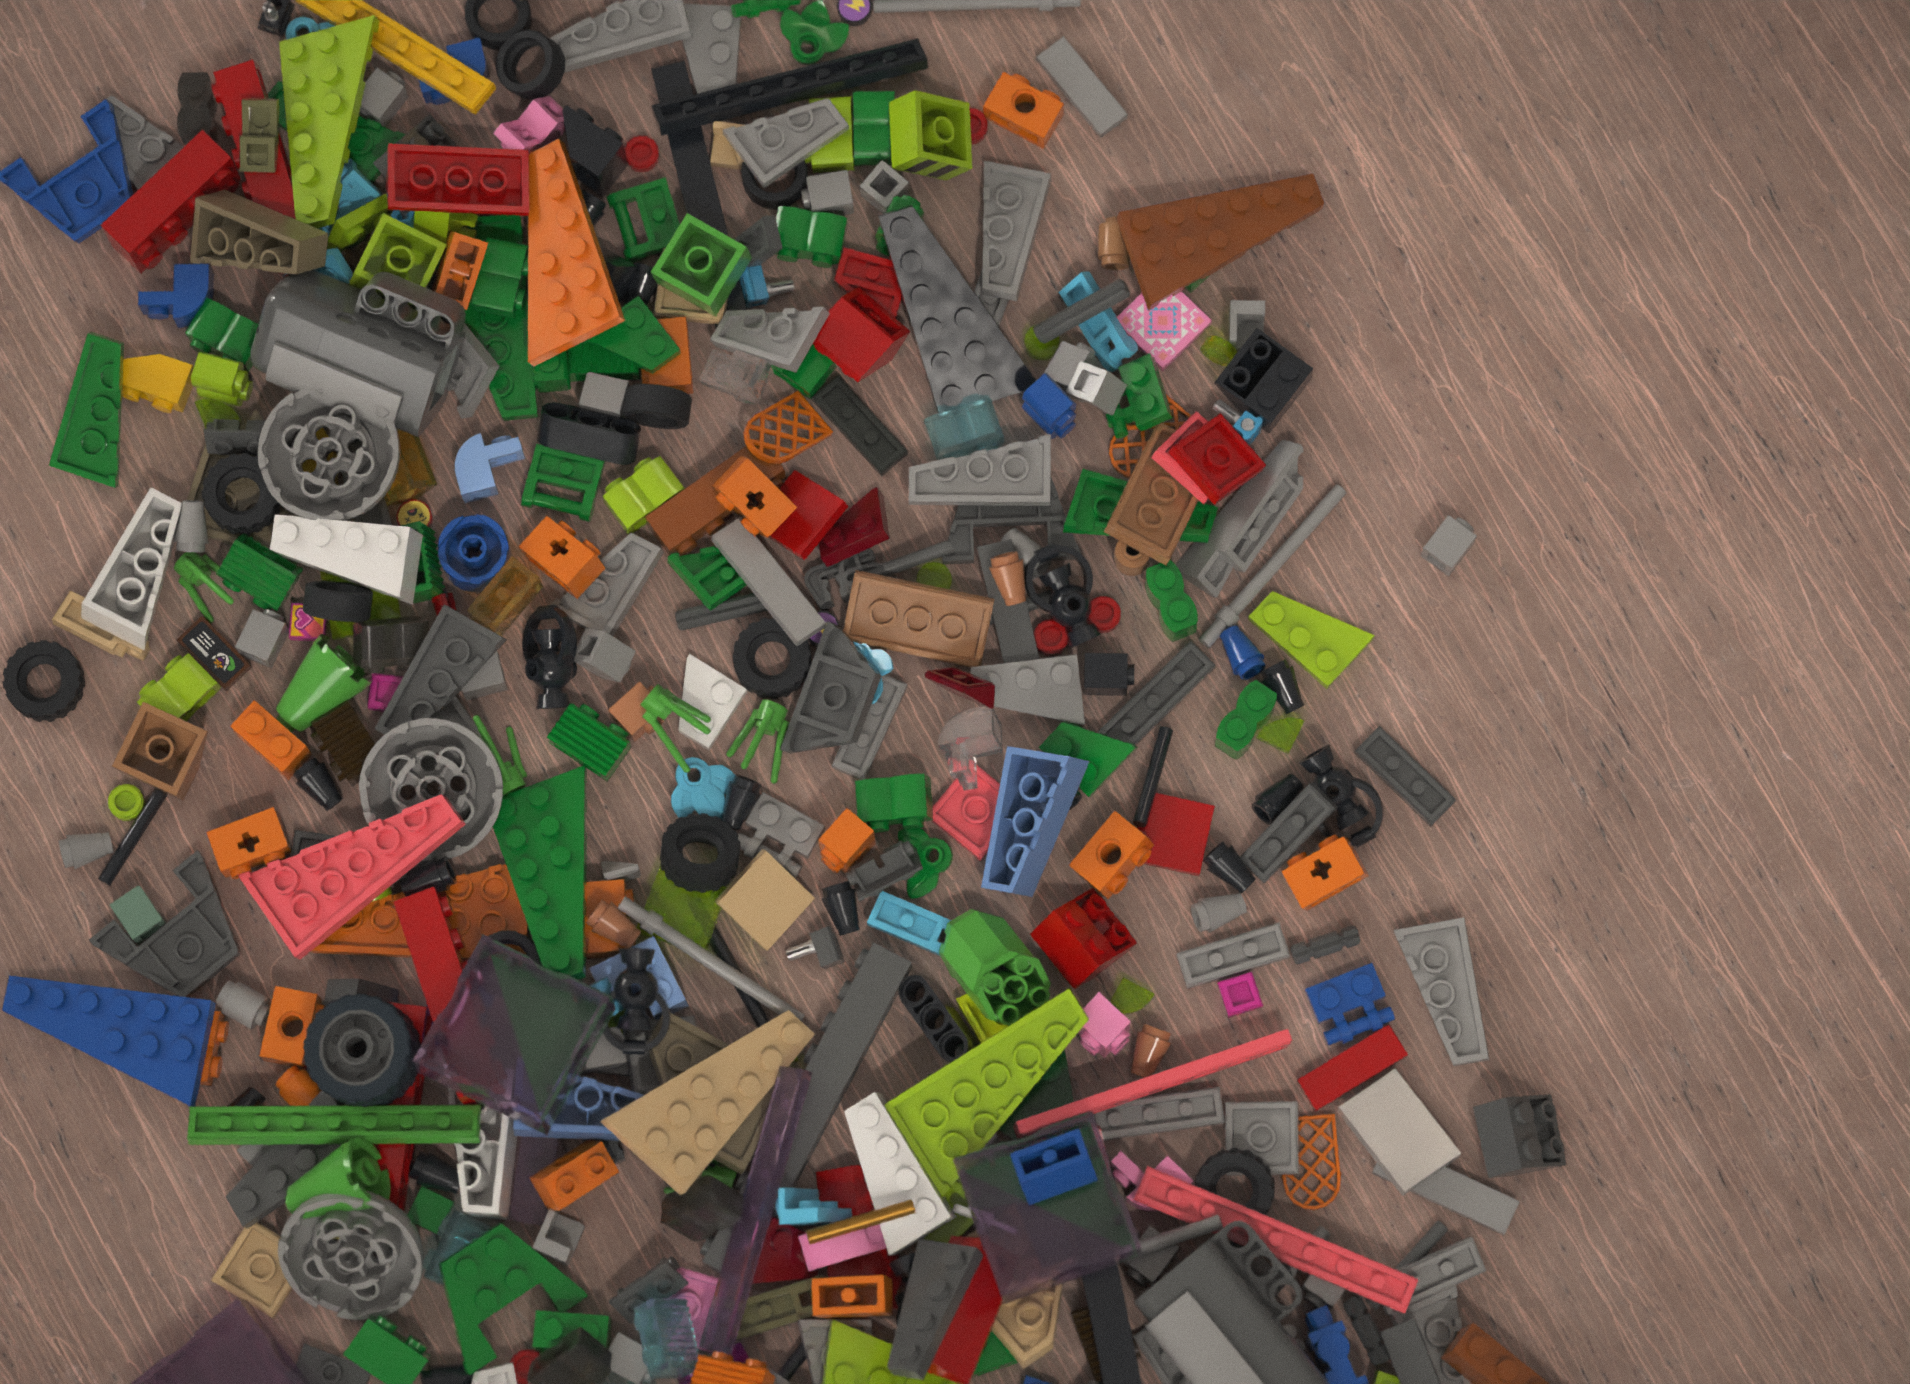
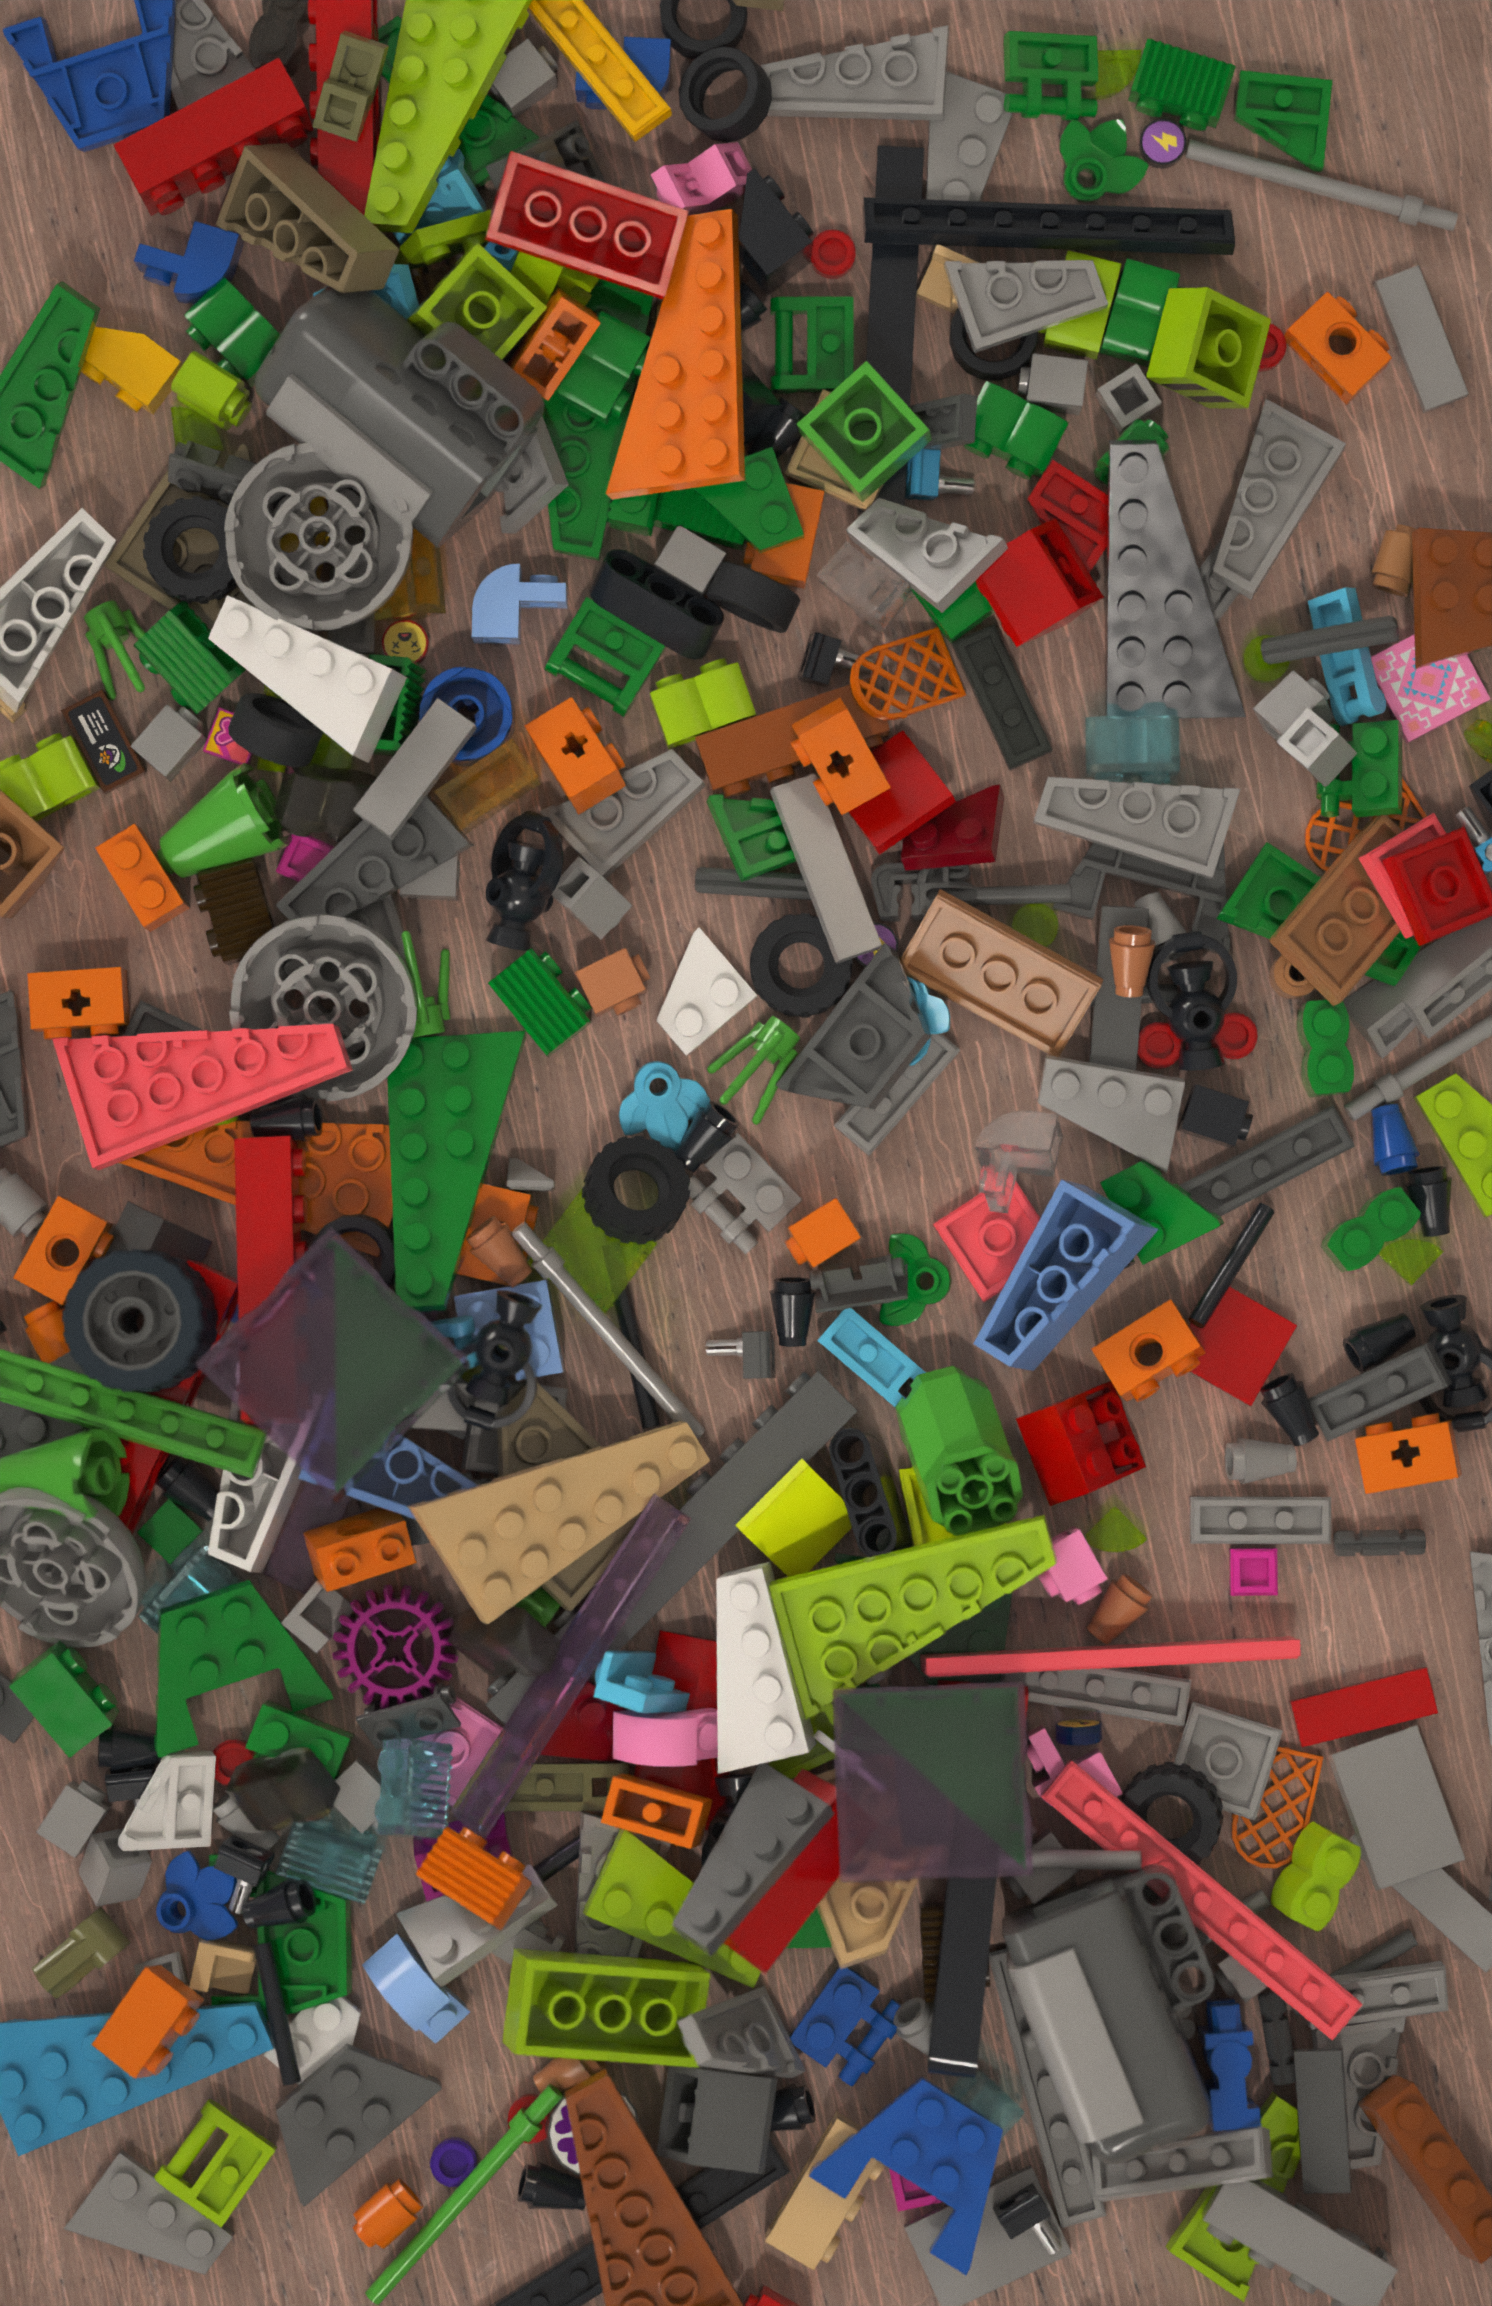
camera: 15 degrees right, 10 degrees up
(191, 528) = (119, 576): light grey cone -> none
(318, 783) = (186, 951): black cone -> none
(447, 597) = (415, 769): none -> light grey tile
(632, 1228) = (380, 1632): none -> magenta gear
(661, 704) = (646, 987): bright green plant -> none
(720, 436) = (821, 657): none -> black piece
(764, 899) = (698, 1272): tan tile -> none
(860, 1222) = (694, 1727): pearl gold bar -> none
(892, 1055) = (797, 1521): none -> neon yellow tile
(894, 801) = (898, 1197): green brick -> none
(964, 685) = (1031, 1078): dark red slope -> none
(1050, 407) = (1251, 753): blue brick -> none
(1053, 1166) = (955, 1737): blue brick -> none
(1148, 1149) = (1078, 1732): none -> clear blue tile
(1345, 994) = (1386, 1612): blue plate -> none
(1355, 1209) = (1319, 1869): none -> lime brick

